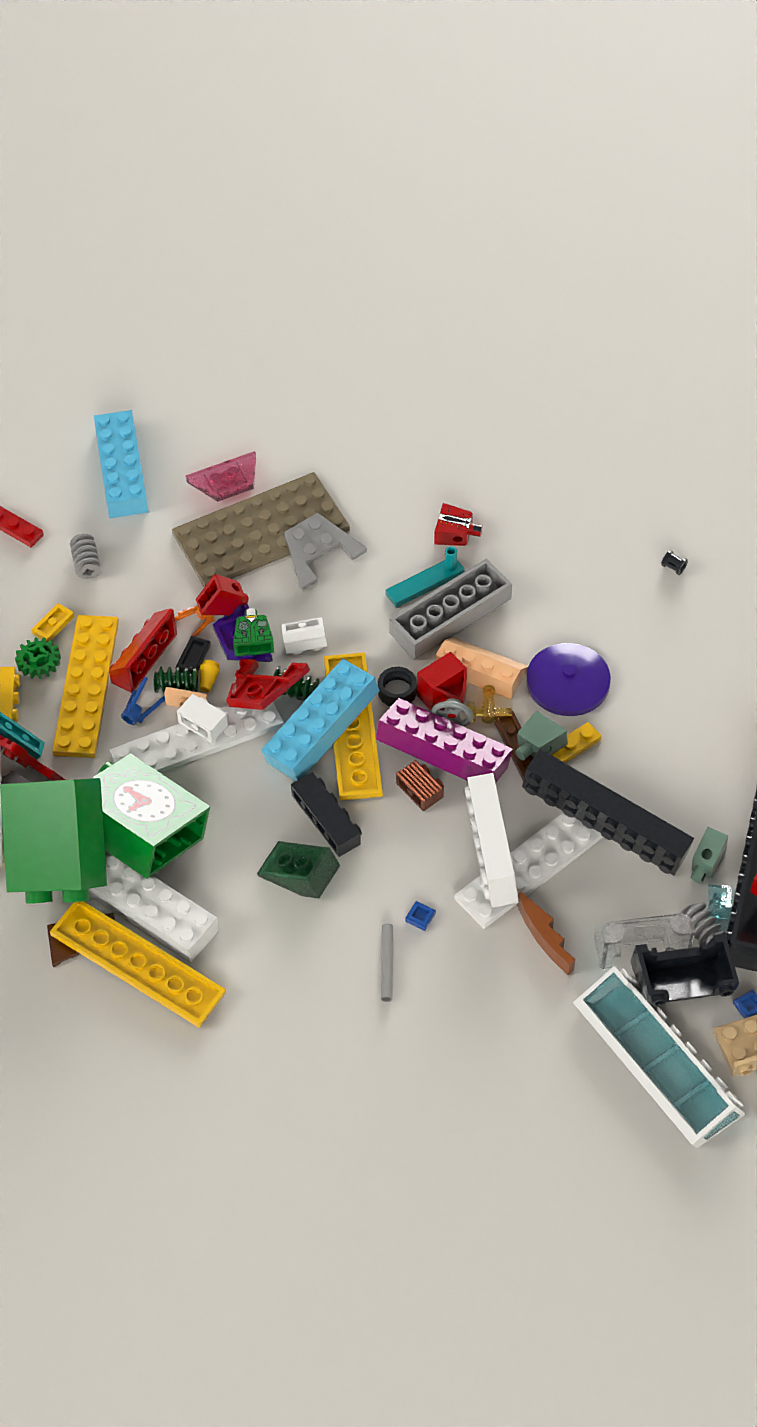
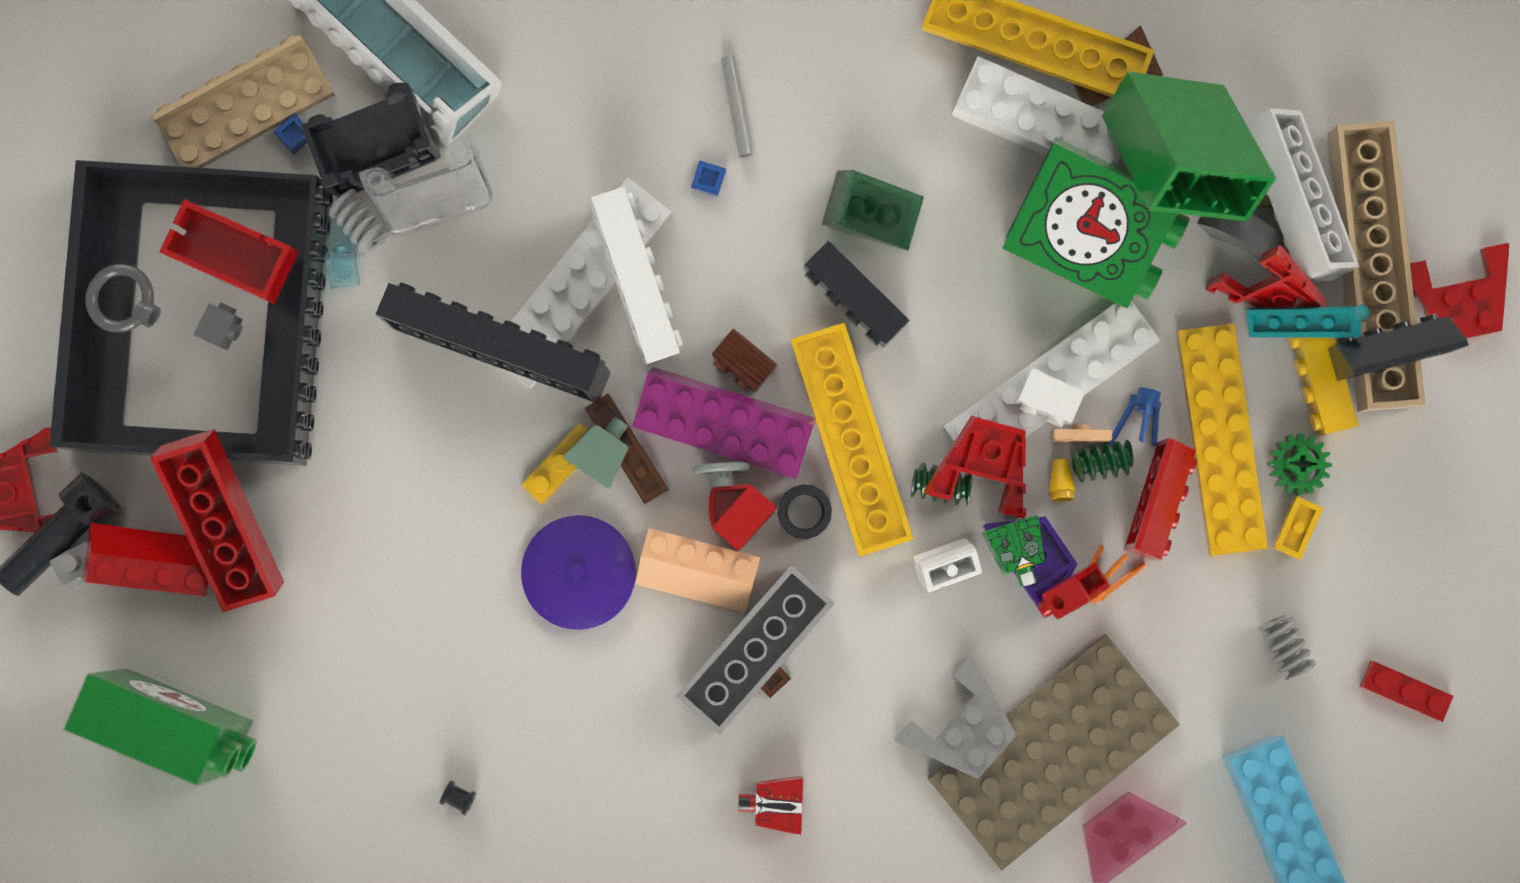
camera: 170 degrees right, 30 degrees up
(193, 654) = (1091, 514): black tile -> none
(320, 720) = (892, 424): medium azure brick -> none
(426, 580) = (801, 702): teal piece -> none
(488, 708) = (676, 496): clear yellow piece -> none
(542, 929) = (556, 184): dark orange slope -> none
(708, 855) = (358, 321): sand green torso -> none

